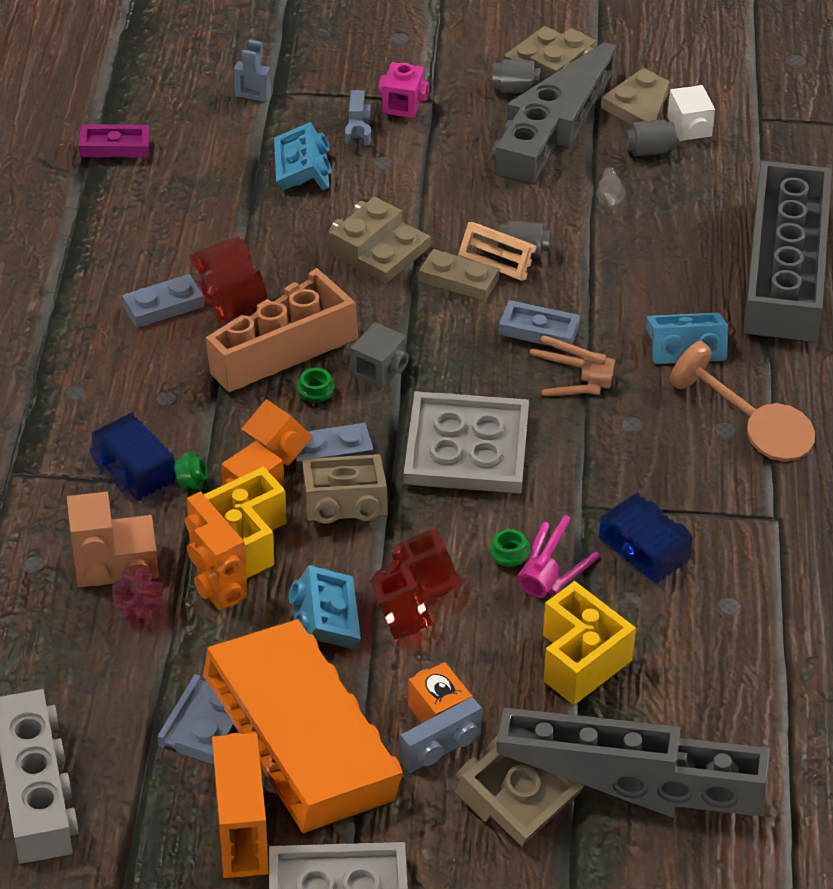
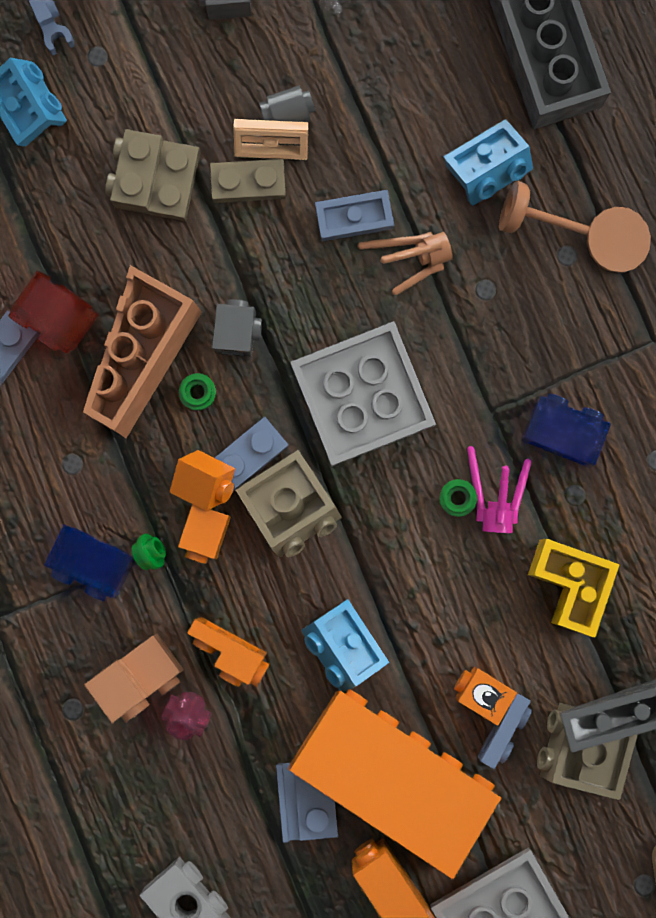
camera: 25 degrees left, 40 degrees up
(253, 509) = (220, 602): yellow brick -> none
(417, 574) = (399, 605): clear red brick -> none

